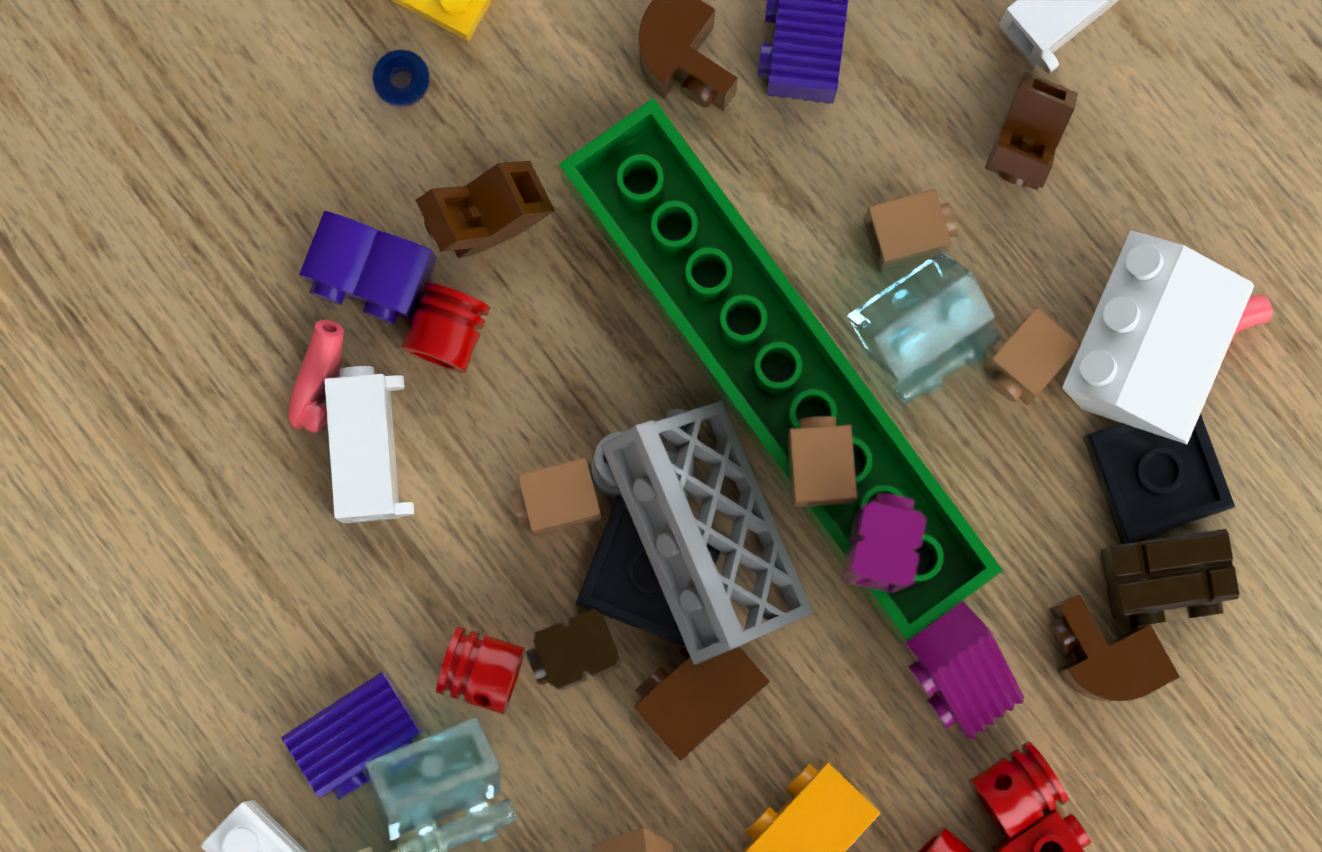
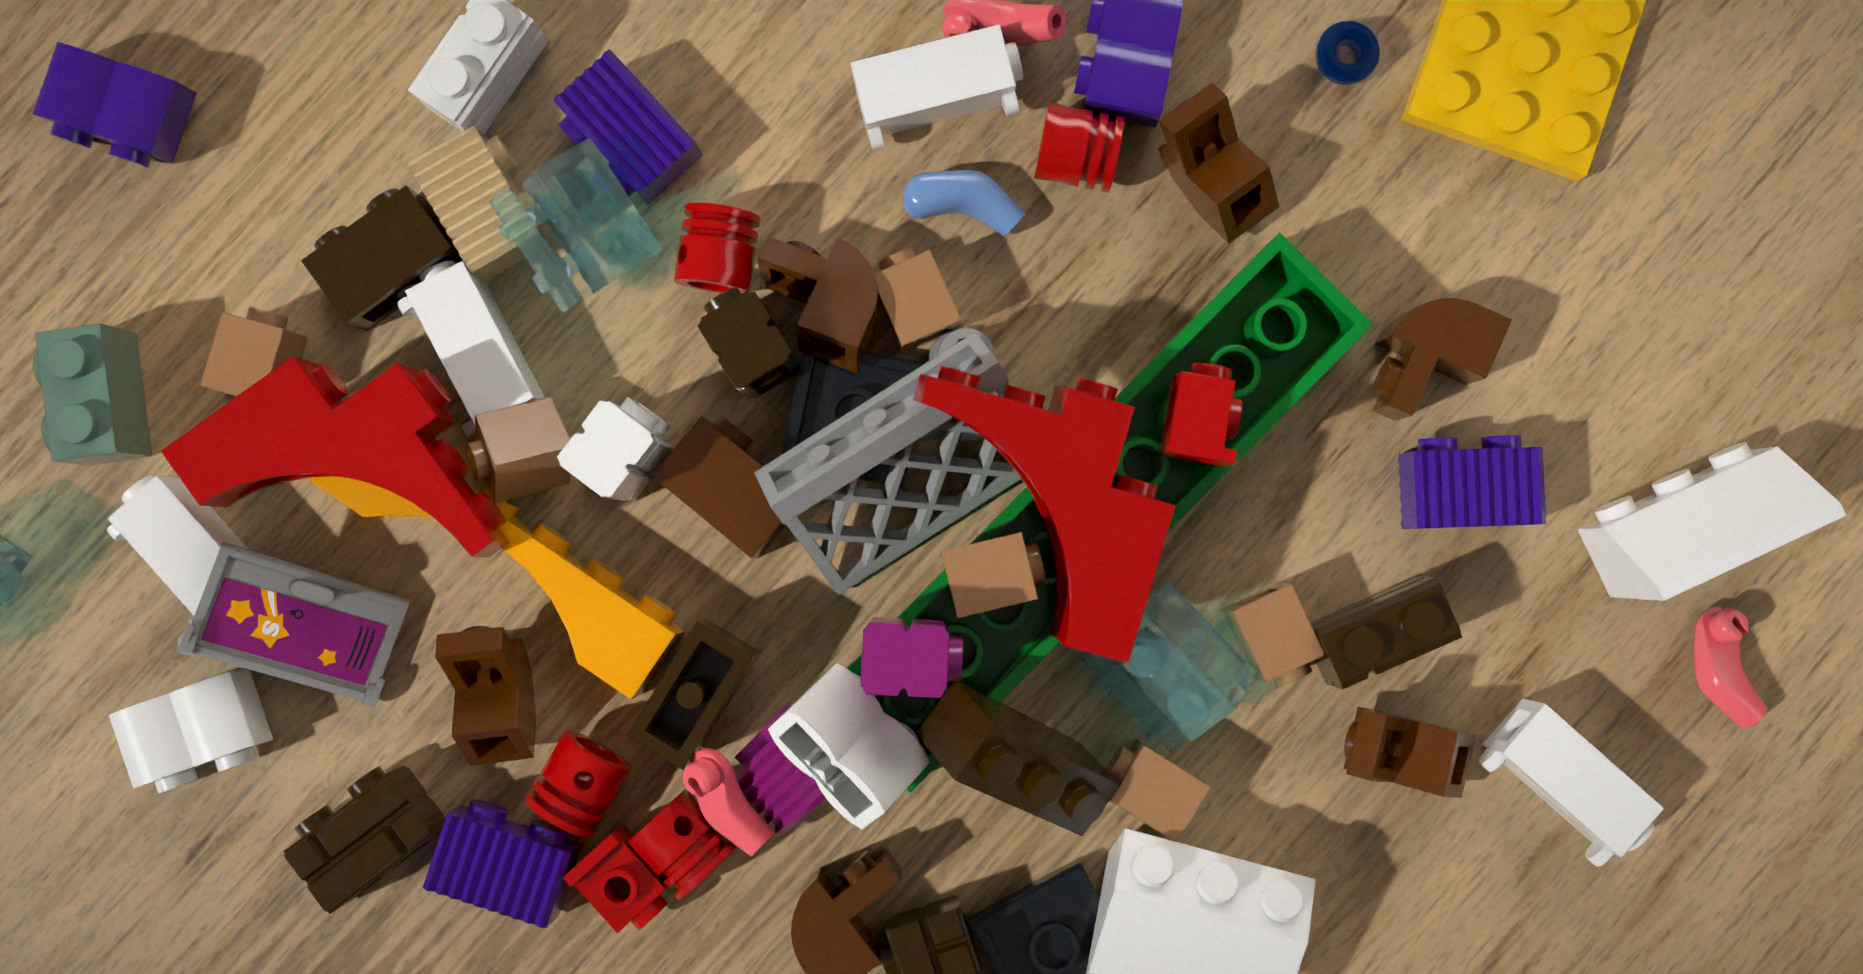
camera: 80 degrees right, 5 degrees up
(467, 440) = (962, 193): none -> medium blue arm
(538, 563) = (837, 295): none -> reddish brown brick
(647, 782) = (617, 449): none -> white brick
(711, 258) = (1201, 416): none -> red brick
(801, 363) = (1099, 534): none -> red arch
(884, 754) = (693, 693): none -> dark brown brick
(922, 134) = (1384, 631): none -> dark brown brick
(954, 612) = (849, 746): none -> white brick
(987, 743) = (722, 801): none -> coral arm
(988, 469) = (1017, 759): none -> dark brown brick

